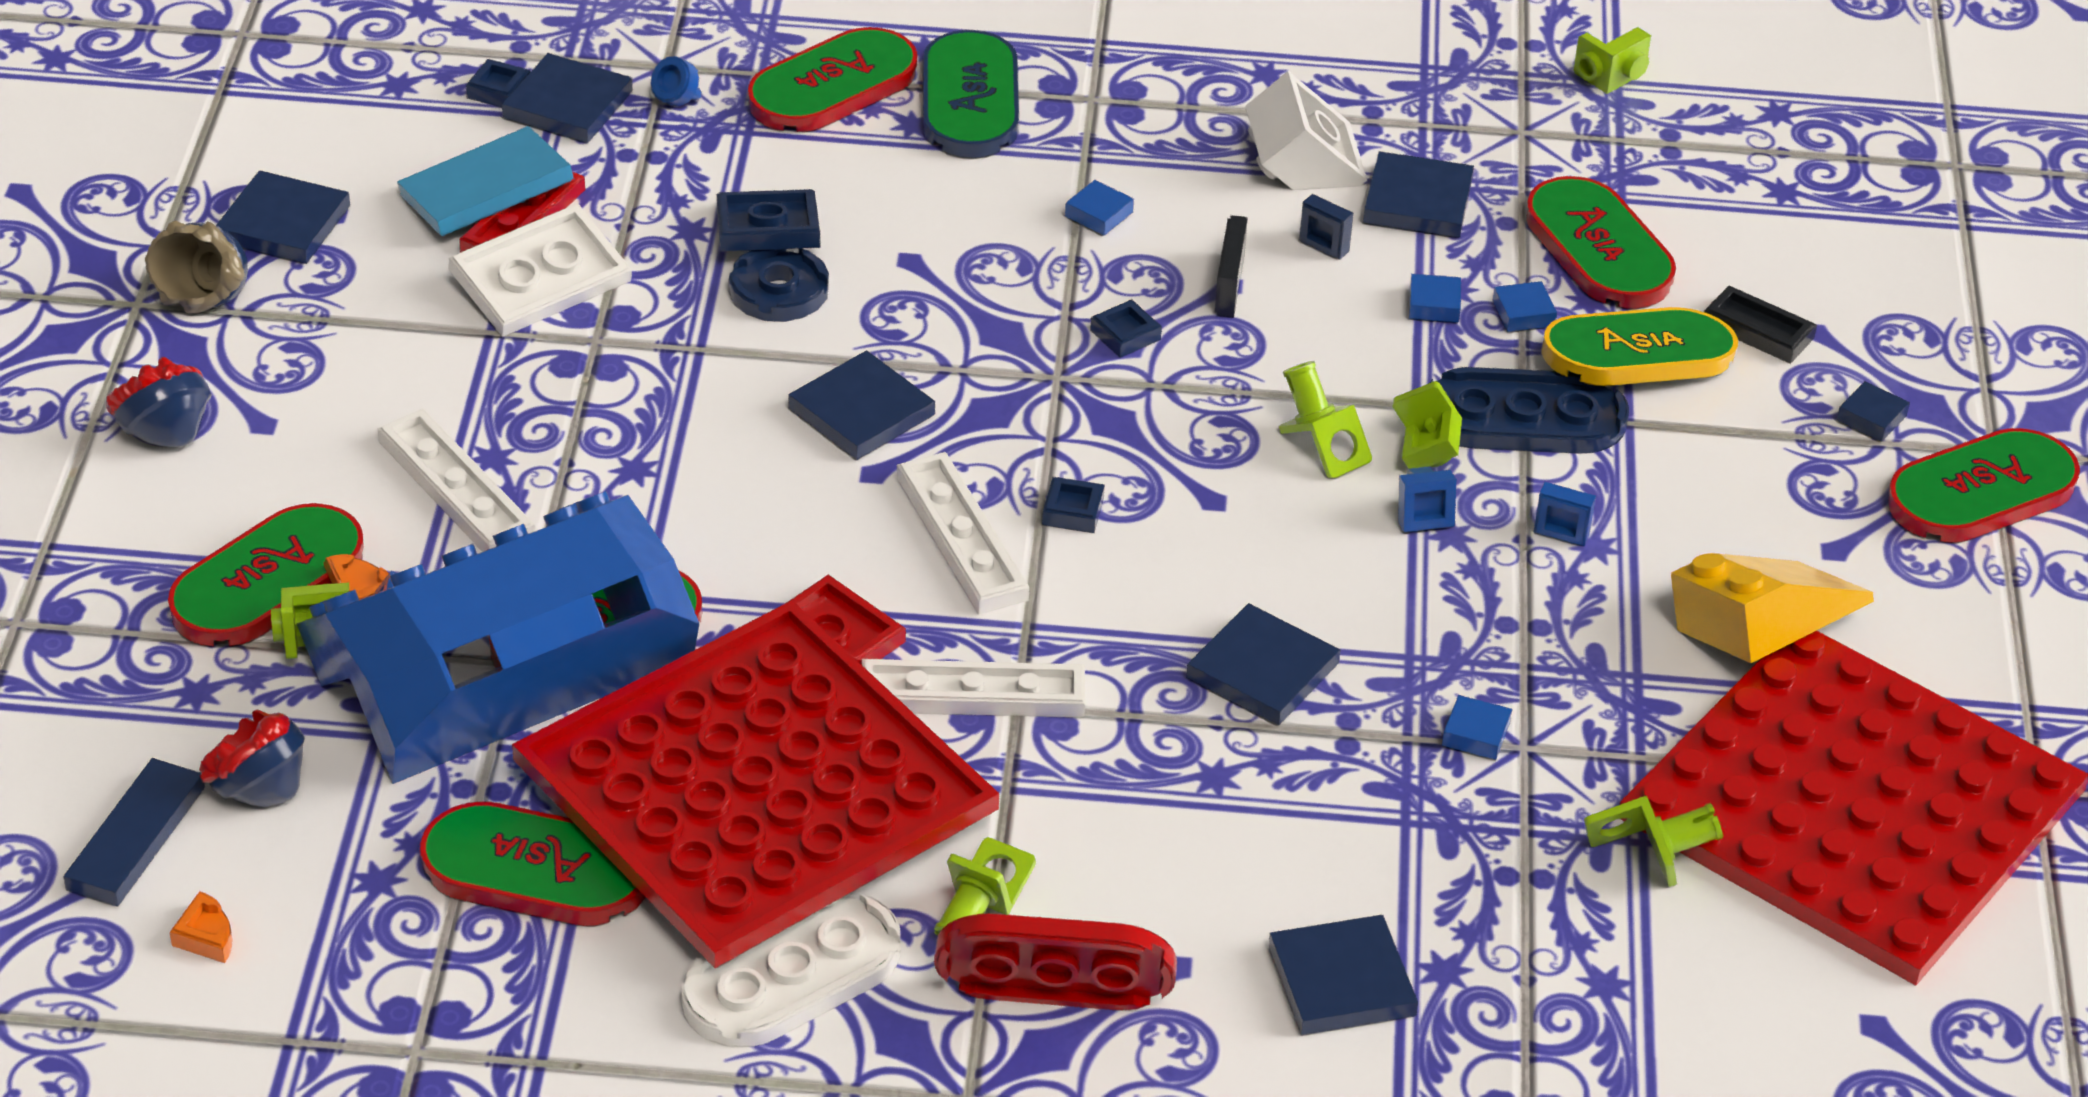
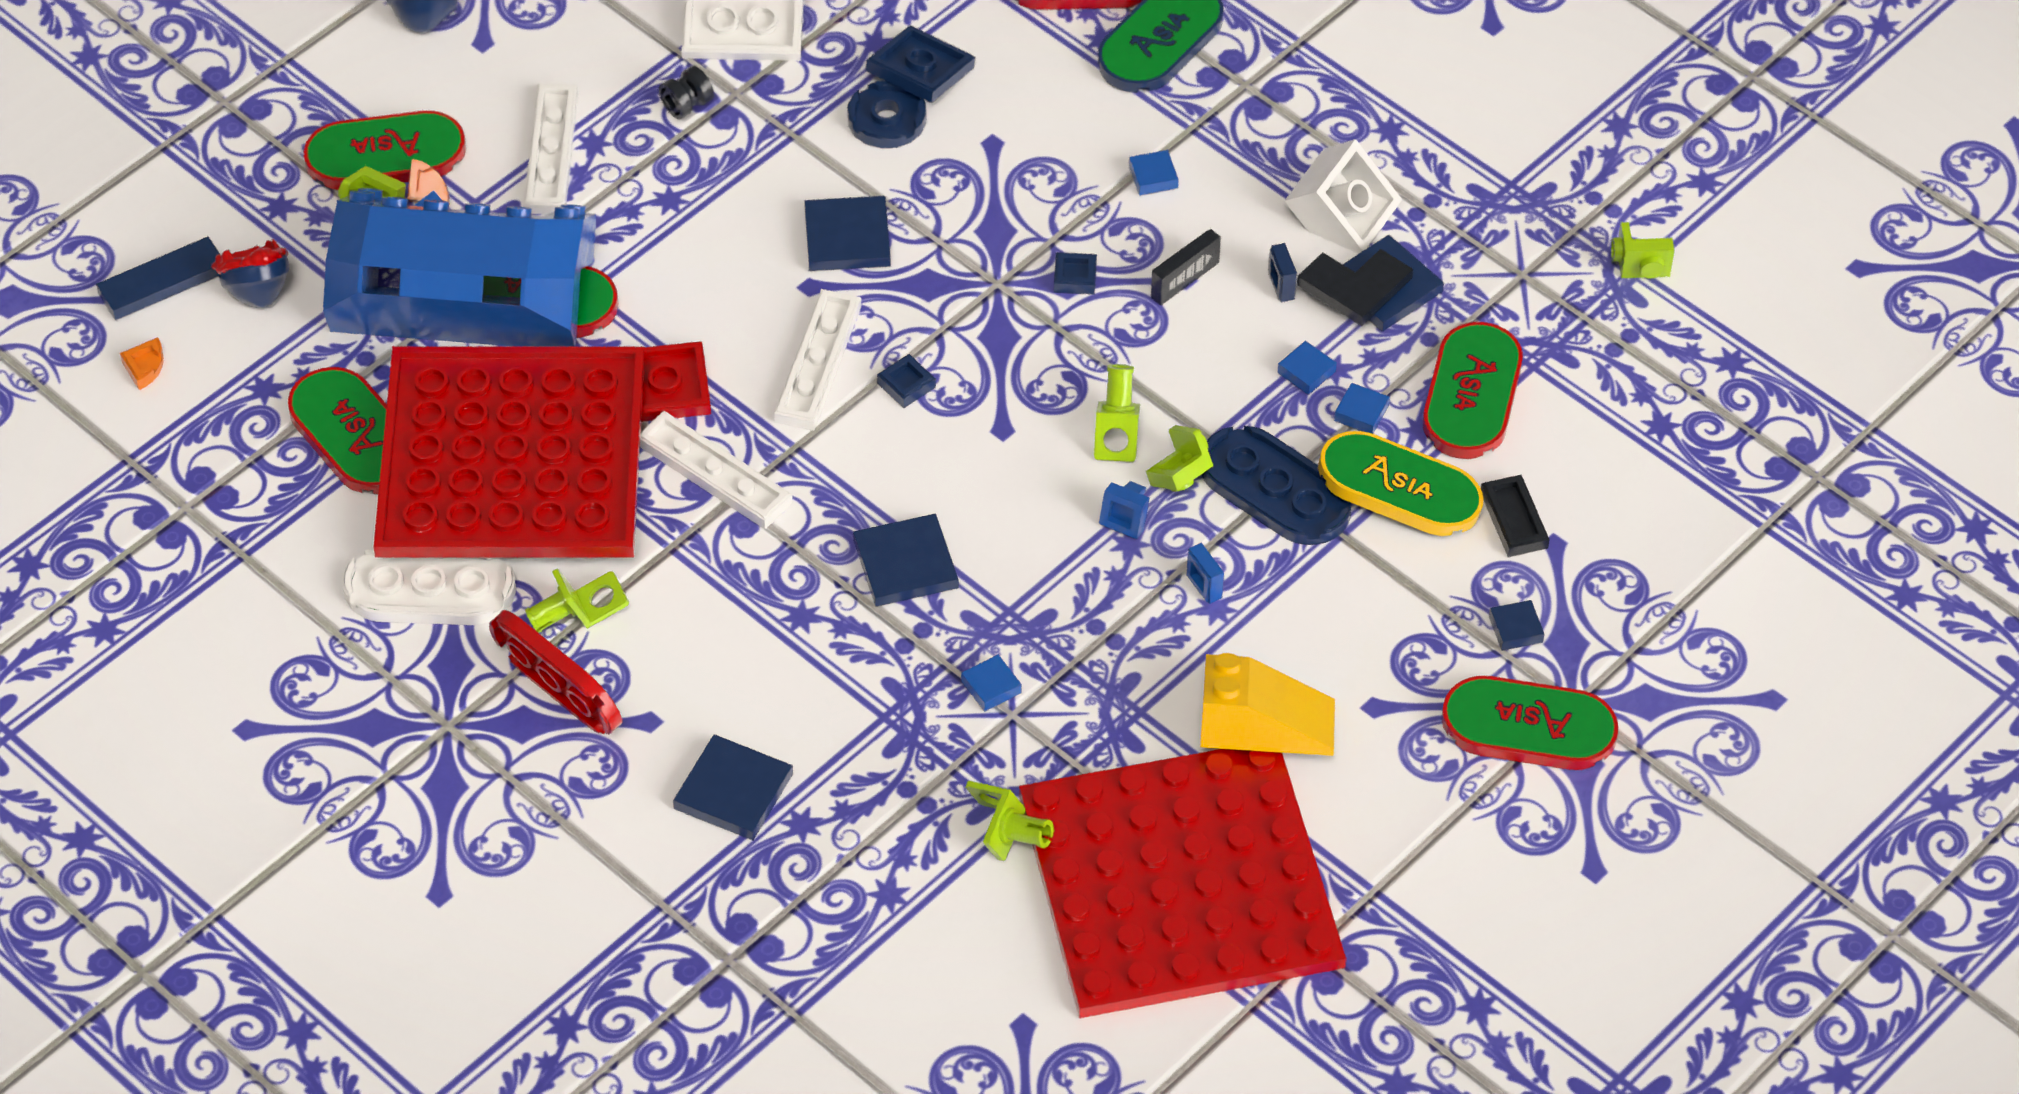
camera: 40 degrees right, 10 degrees up
(554, 356) = (684, 93): none -> black wheel
(1413, 208) = (1359, 292): none -> black tile

